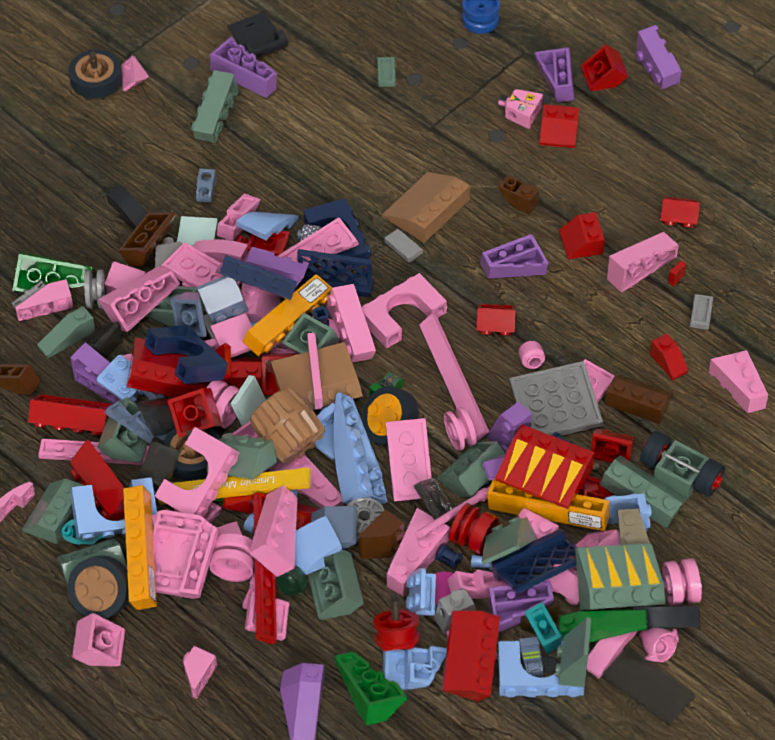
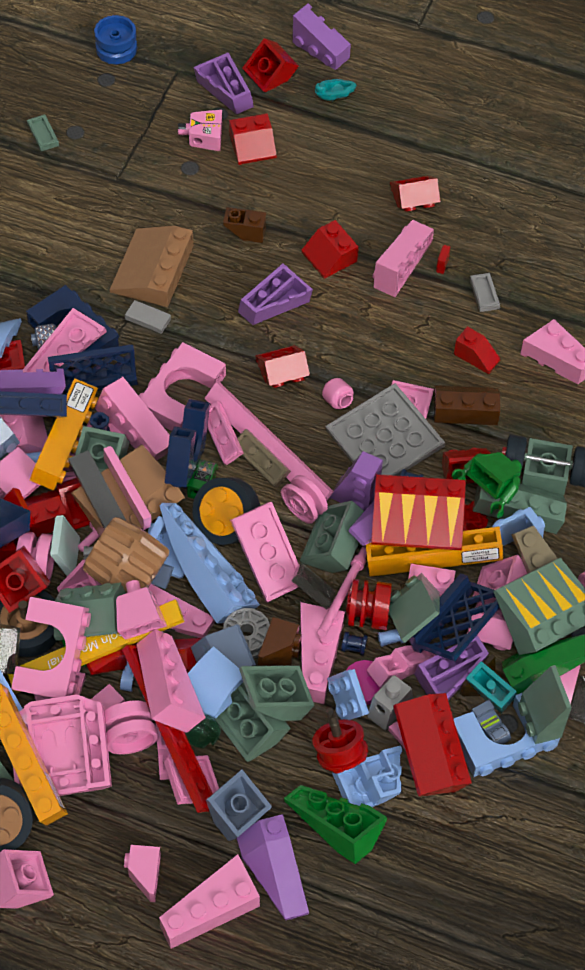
camera: 25 degrees left, 5 degrees up
(236, 714) = (211, 904): none -> bright pink wedge
(275, 467) = (138, 611): none -> bright pink torso
(290, 362) = (95, 488): none -> dark grey tile
(290, 645) = (237, 805): none -> sand blue slope
(317, 453) = (163, 577): none -> sand blue tile
(361, 568) = (277, 691): none -> sand green slope
(379, 356) = (187, 443): none -> dark blue arch
(420, 356) = (223, 434): none -> bright pink tile
(442, 386) = (262, 458): none -> dark tan tile
(625, 459) = (495, 475): none -> green torso
(651, 104) = (334, 89): none -> teal arm

